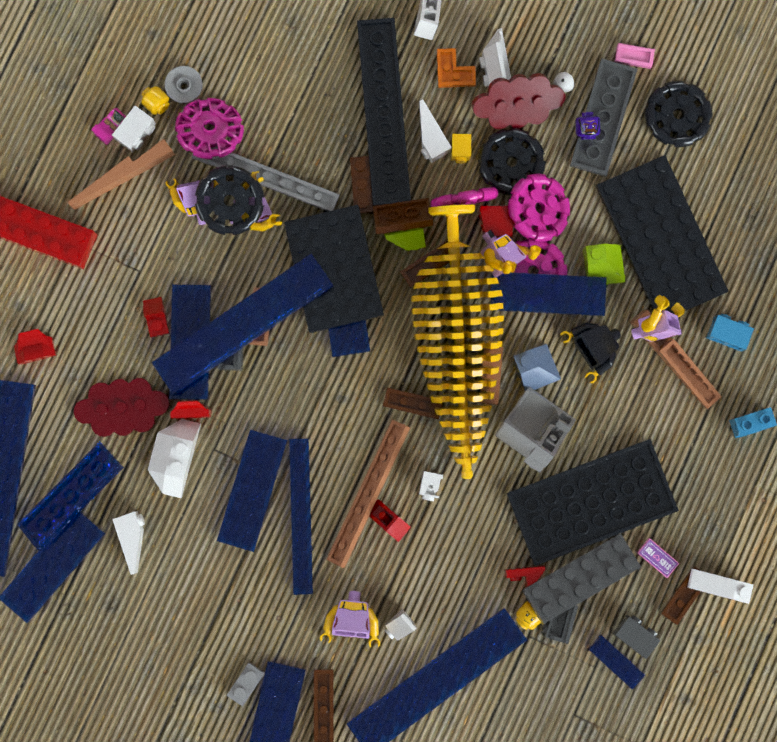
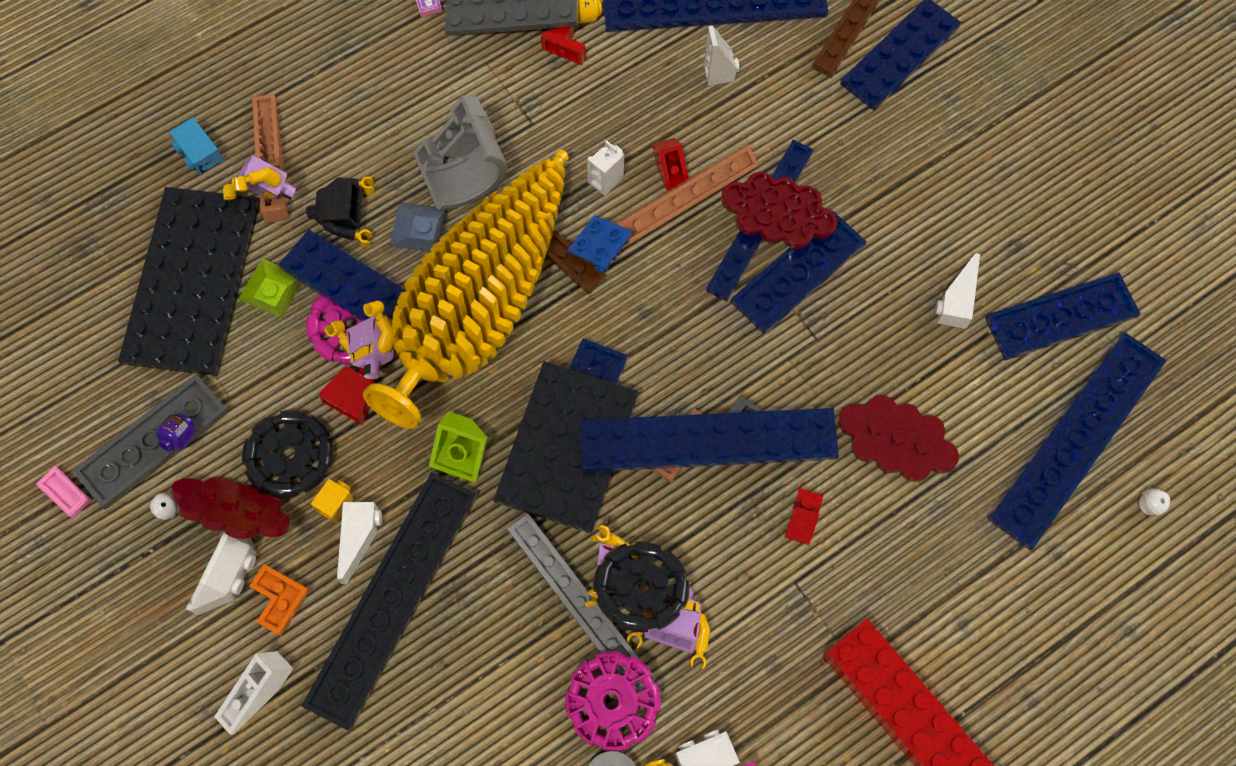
camera: 145 degrees left, 15 degrees down
(33, 346) = (969, 561): red slope -> none
(70, 496) = (1007, 371): clear blue plate -> none
(123, 172) = (748, 710): nougat slope -> none
(173, 456) = (864, 353): white wedge -> none
(189, 314) = (767, 486): clear blue plate -> none
(190, 409) = (821, 388): red slope -> none
(245, 684) = (910, 100): light grey plate -> none
(289, 525) = (778, 210): none -> dark red plate
(352, 619) = (767, 94): torso -> none
(361, 184) = (473, 529): reddish brown plate -> none
(399, 424) = (600, 242): none -> blue hinge
(402, 216) = (451, 454): reddish brown plate -> none
(410, 272) = (457, 394): reddish brown plate -> none
(466, 197) = (369, 430): dark pink plate -> none
(548, 203) = (305, 393): dark pink plate -> none
(592, 502) = (436, 66): black plate -> none
(686, 105) = (61, 385): black plate -> none
(753, 422) = (240, 53): dark azure hinge -> none

